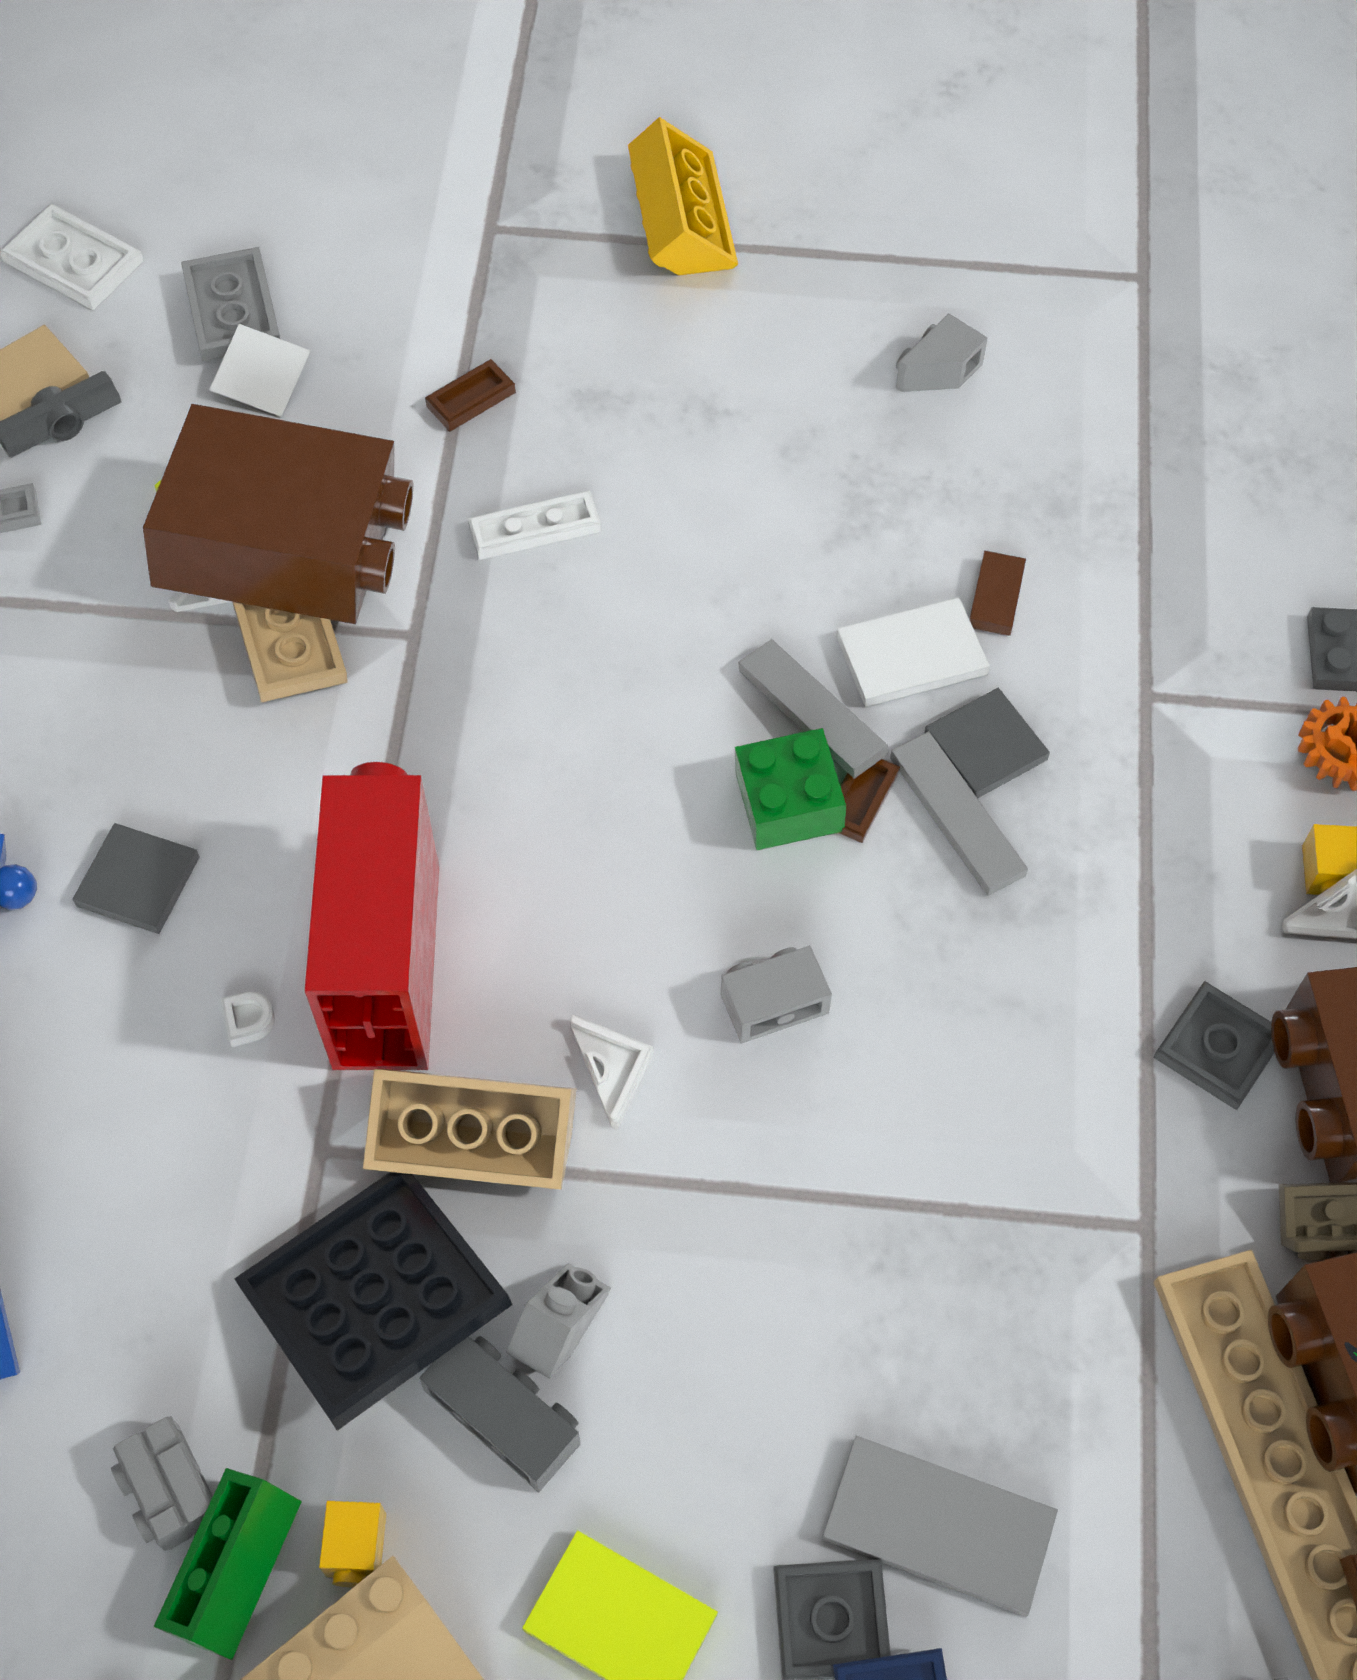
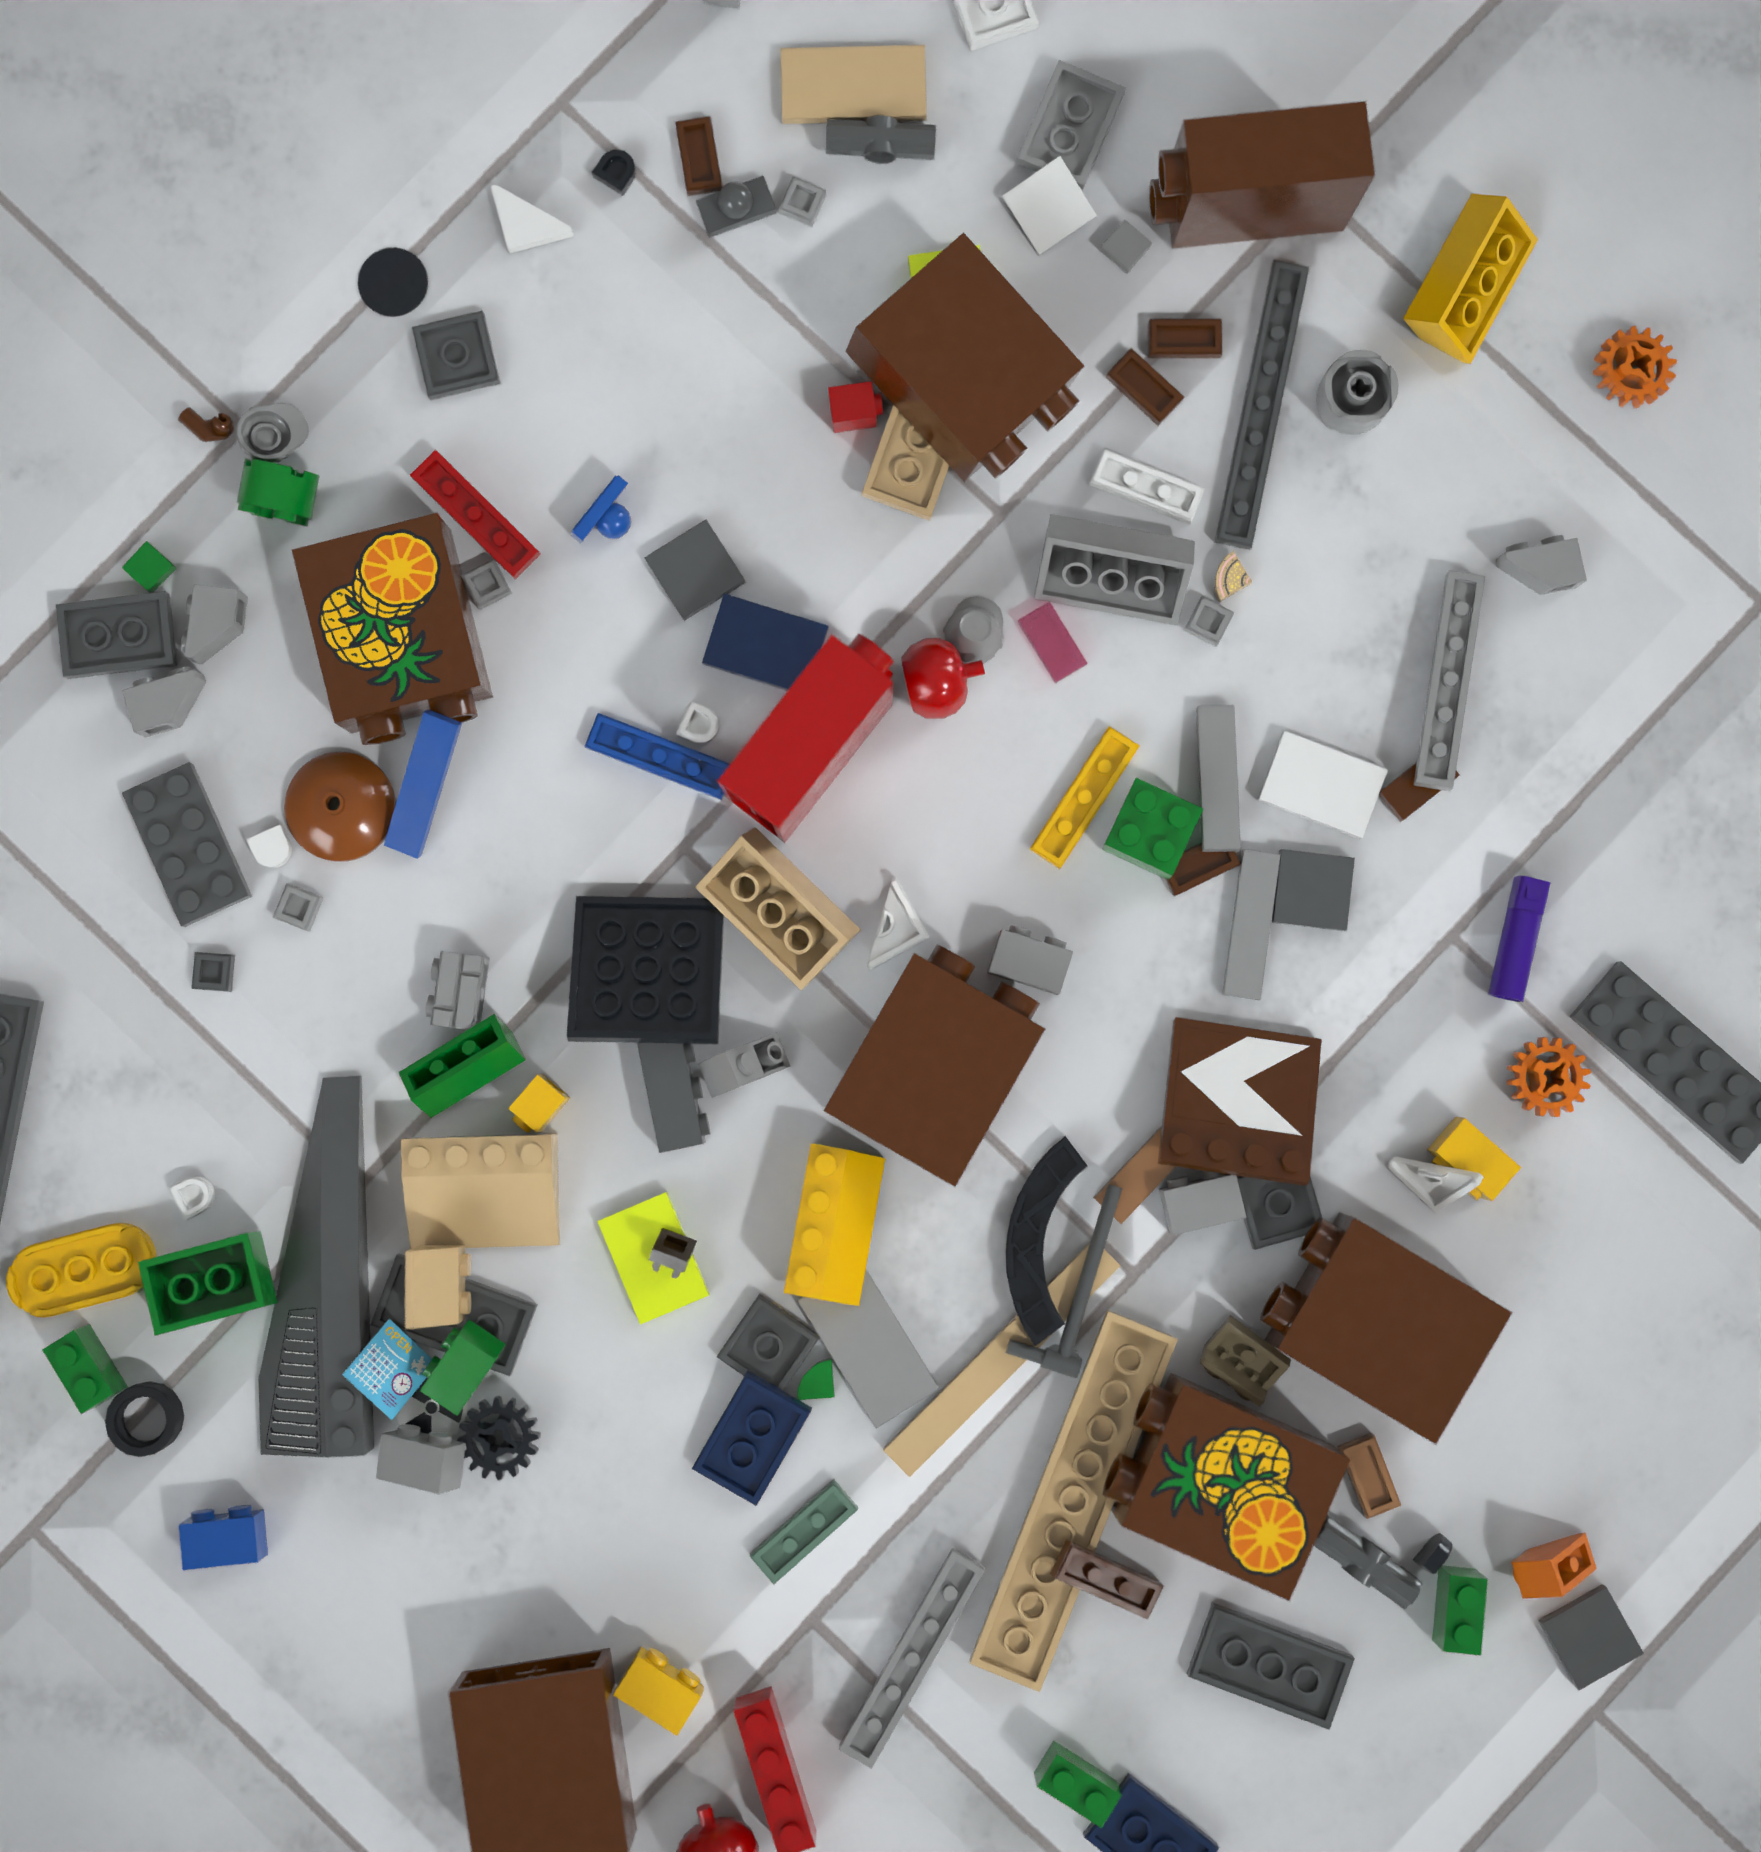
camera: 35 degrees right, 25 degrees up
(195, 632) = (854, 406): none -> red brick
(226, 1077) = (656, 755): none -> blue tile
(254, 897) = (762, 642): none -> dark blue tile
(357, 361) = (1125, 246): none -> light grey tile
(436, 212) = (1263, 175): none -> reddish brown brick
(465, 452) = (1144, 387): none -> reddish brown tile
(467, 799) = (937, 677): none -> red piece
(469, 747) = (975, 629): none -> light grey hat
(554, 704) = (1052, 642): none -> clear pink tile
(562, 604) = (1114, 569): none -> light grey slope
(587, 405) = (1261, 405): none -> dark grey tile
(637, 1584) = (672, 1251): none -> dark brown tile
(660, 332) = (1371, 378): none -> light grey brick
(675, 544) = (1230, 577): none -> tan tile
(687, 591) = (1209, 621): none -> light grey tile
(700, 816) = (1084, 797): none -> yellow tile
(767, 1159) = (937, 1064): none -> reddish brown brick
(794, 1415) = (834, 1225): none -> yellow slope
(876, 180) = (1636, 383): none -> orange gear
(920, 1615) = (817, 1382): none -> green tile
(947, 492) = (1449, 681): none -> light grey plate
(1011, 1274) = (1027, 1237): none -> black tile
(1065, 1113) = (1137, 1178): none -> medium nougat tile
(1092, 1433) = (983, 1375): none -> tan tile
(1096, 971) = (1240, 1101): none -> reddish brown plate
(1148, 1094) = (1201, 1202): none -> light grey brick
(1154, 1363) = (1062, 1357): none -> dark grey bar
(1207, 649) = (1519, 938): none -> dark purple piece

